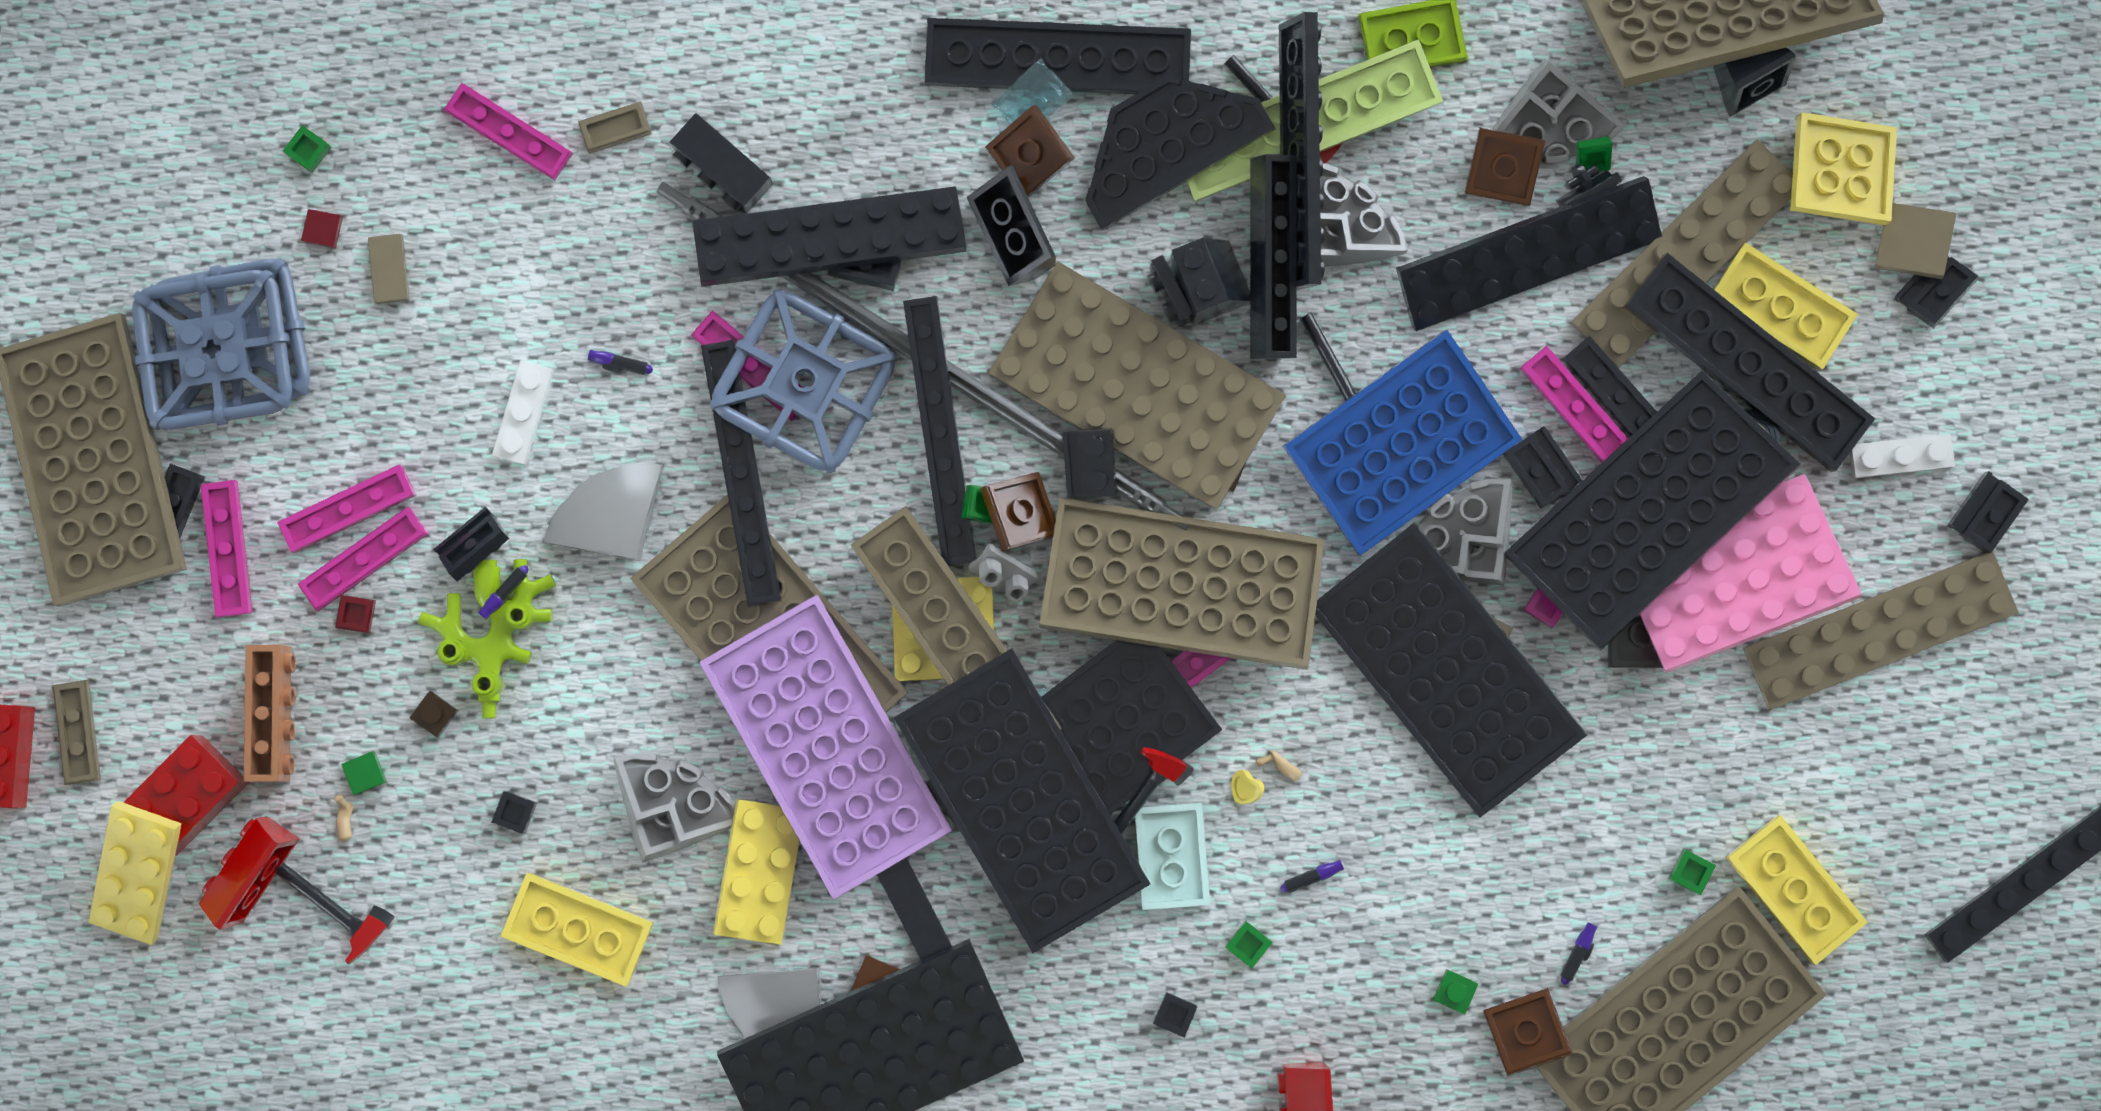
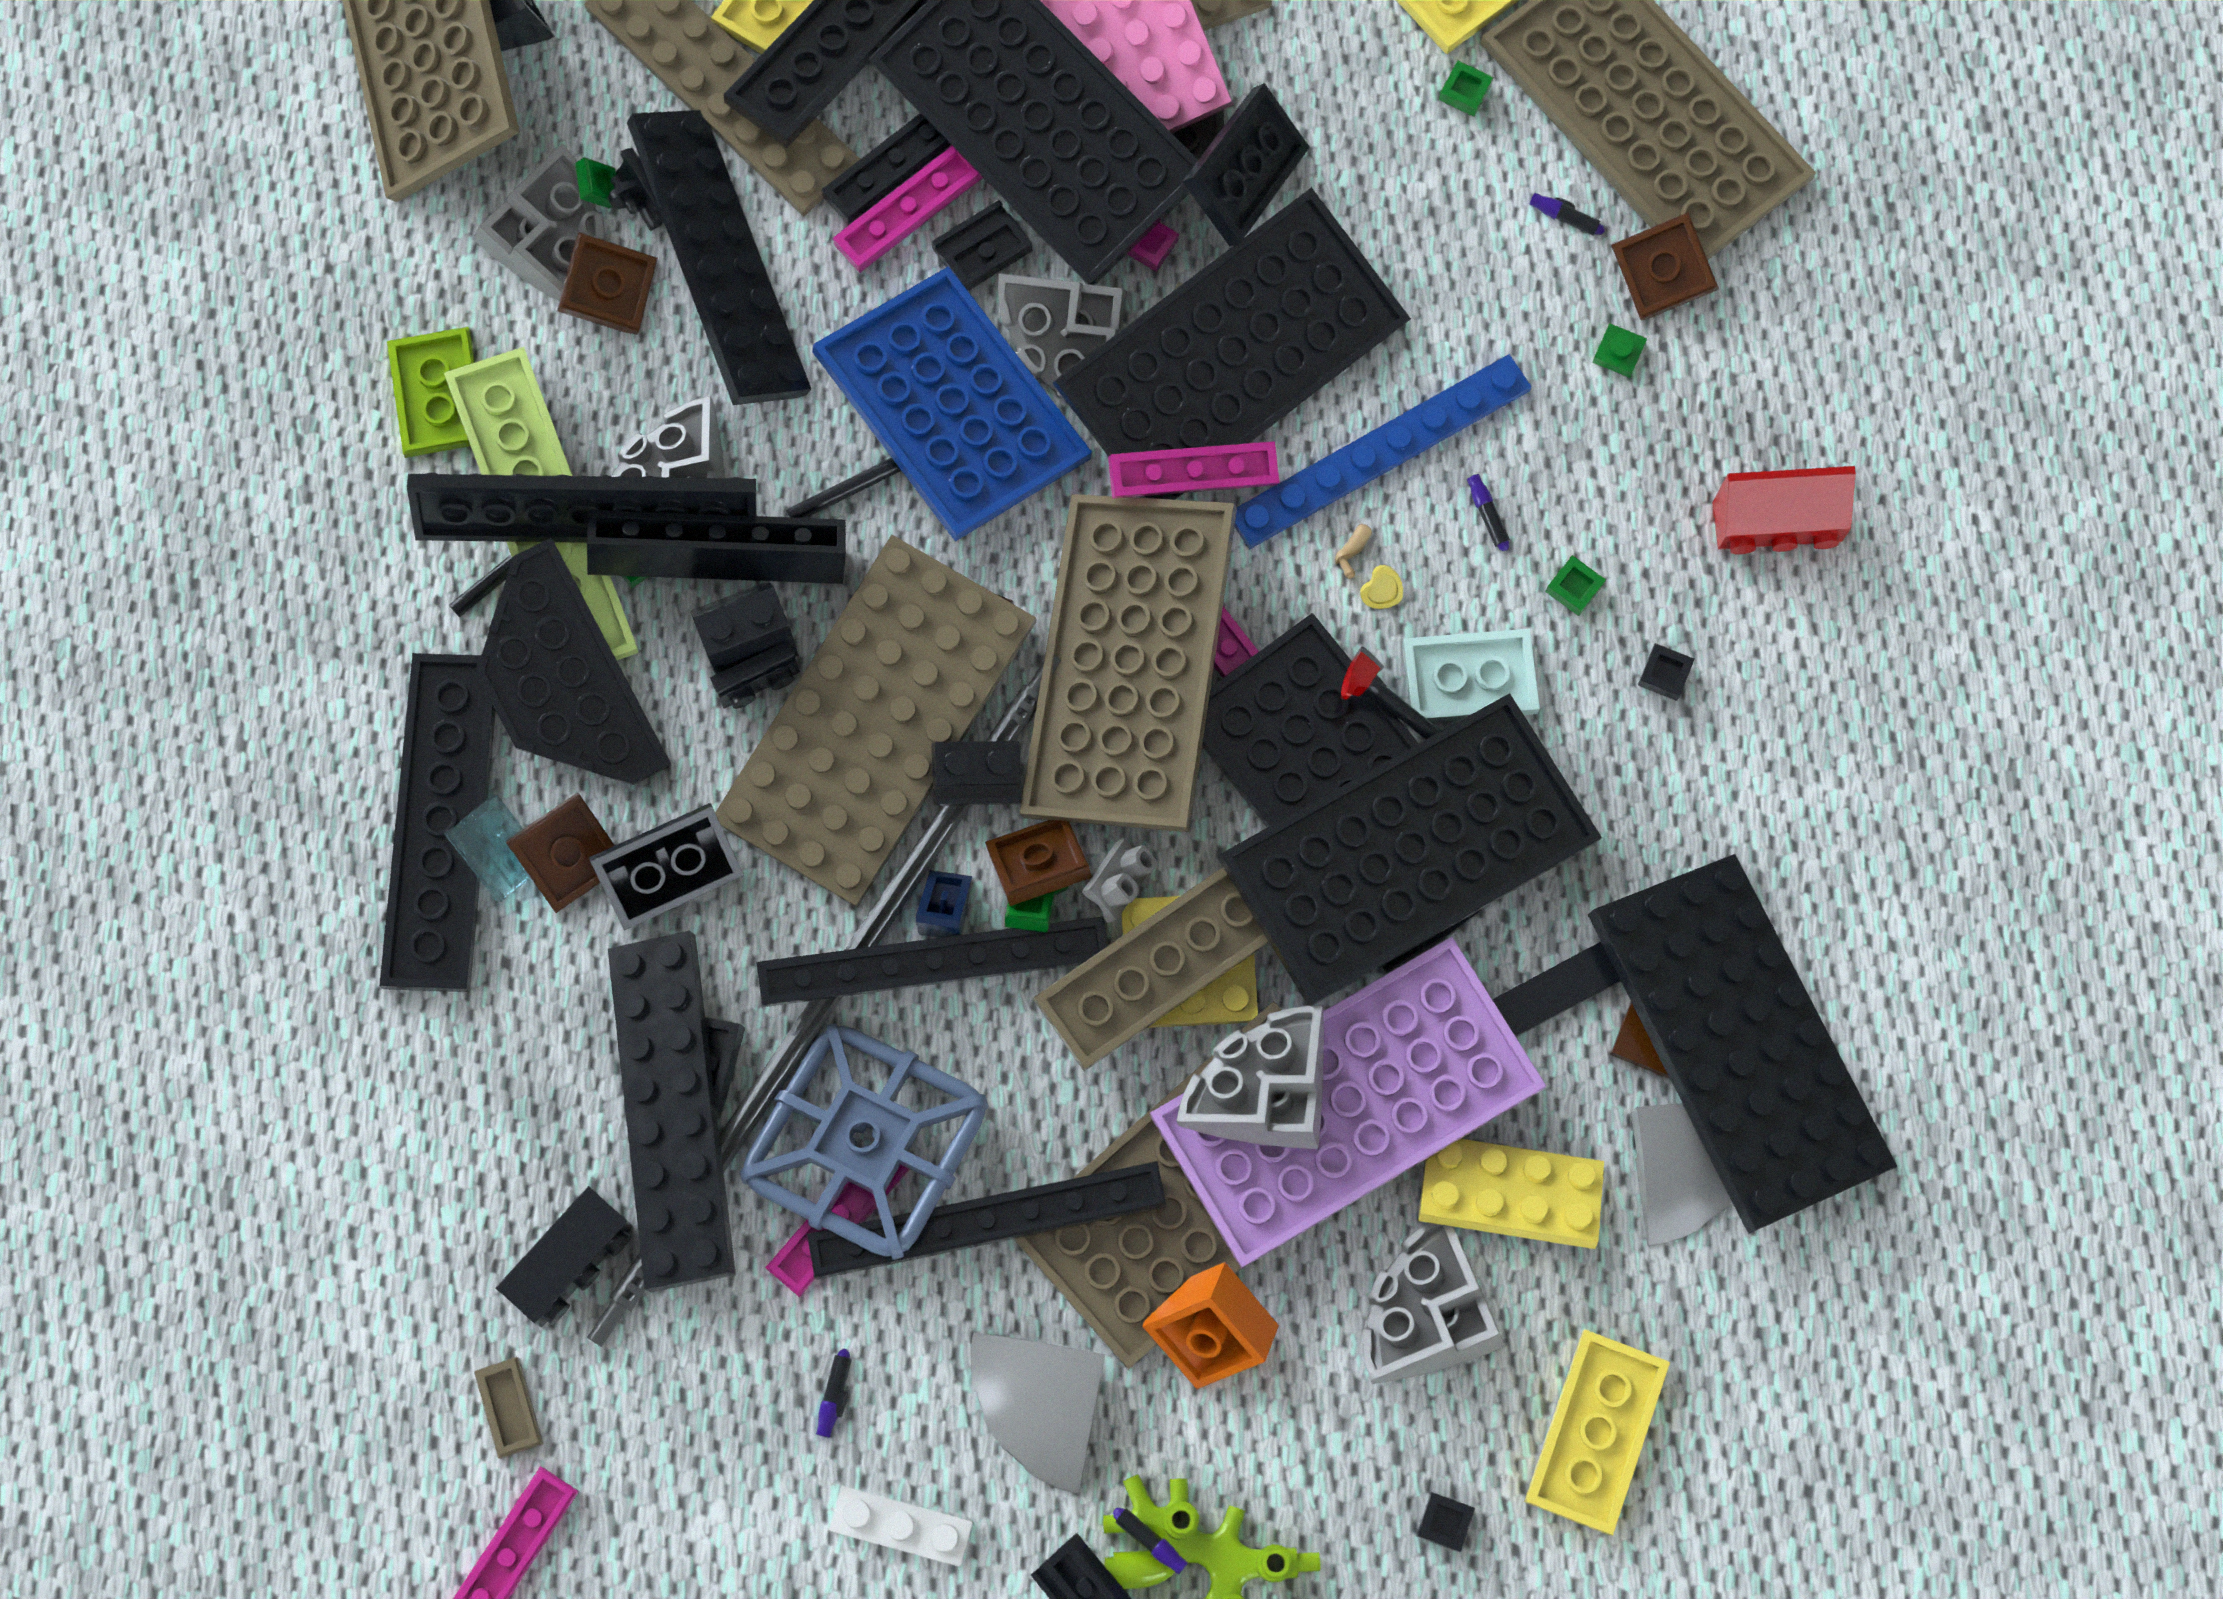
camera: 90 degrees left, 10 degrees down
(657, 641) = (1212, 1327): none -> orange slope
(835, 679) = (1263, 1083): none -> light grey brick
(988, 440) = (943, 904): none -> dark blue slope
(1341, 635) = (1193, 469): none -> dark pink plate
(1366, 790) = (1380, 451): none -> blue plate
(1608, 682) = (1246, 164): none -> black plate

